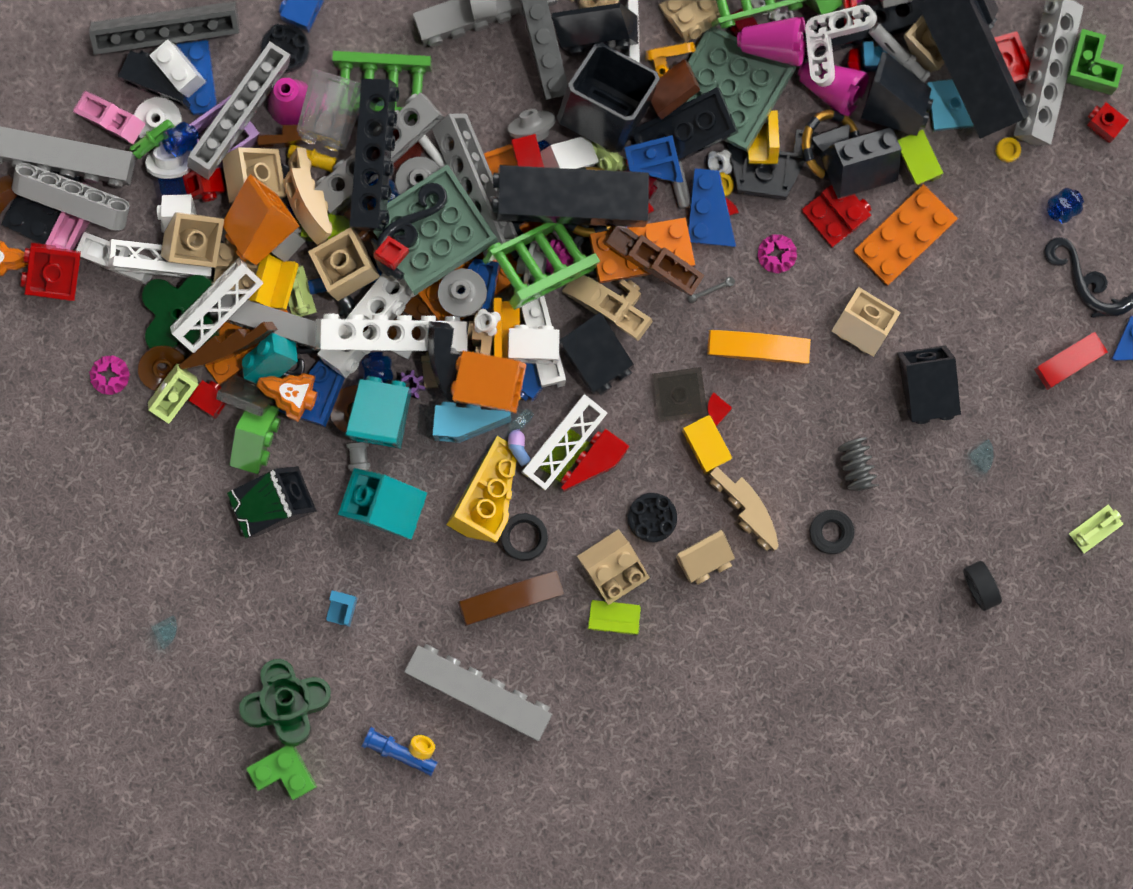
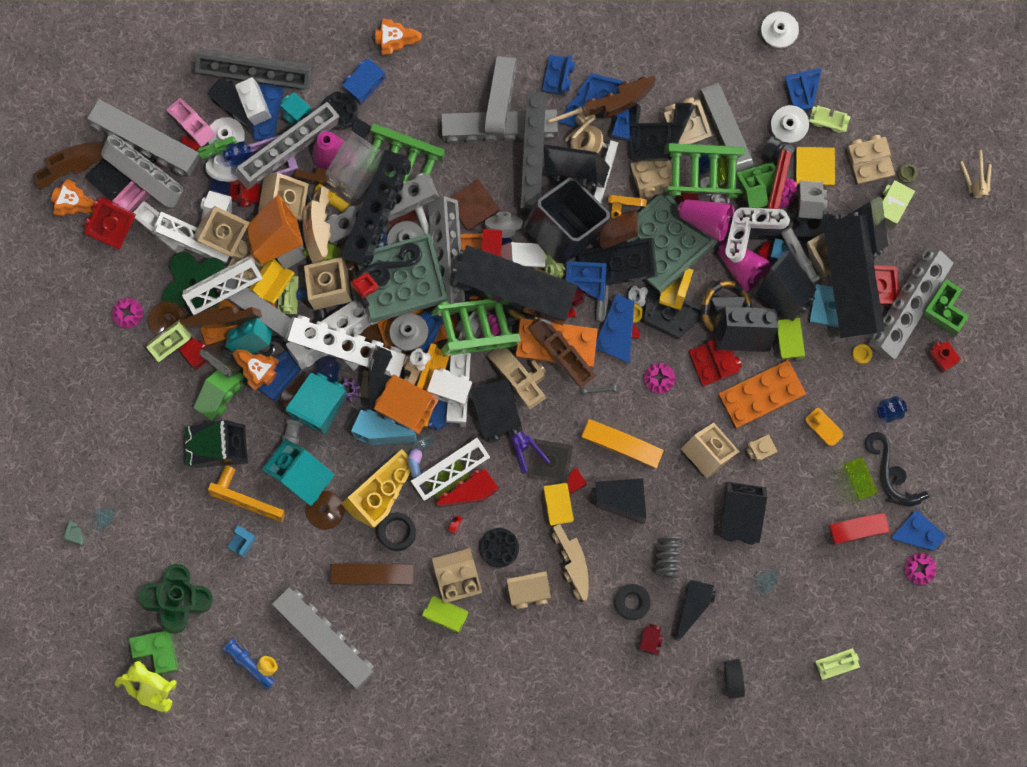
camera: 20 degrees right, 5 degrees down
(117, 144) = (190, 143): none -> red tile
(135, 663) = (73, 533): none -> sand green tile
(232, 63) = (294, 109): none -> teal brick
(295, 819) = (152, 687): none -> neon yellow animal
(297, 556) = (221, 492): none -> light orange piece
(319, 60) = (361, 128): none -> black tile
(436, 549) = (330, 518): none -> reddish brown dish
(488, 112) = (475, 205): none -> copper tile
(591, 506) = (454, 526): none -> red tile
(638, 386) = (520, 444): none -> dark purple plant
(781, 413) = (621, 498): none -> black slope
(868, 570) = (651, 640): none -> dark red brick
(907, 508) = (696, 602): none -> black slope
(925, 301) = (761, 448): none -> tan bracket
(991, 251) = (824, 427): none -> light orange piece
(1054, 300) = (860, 478): none -> clear neon green plate

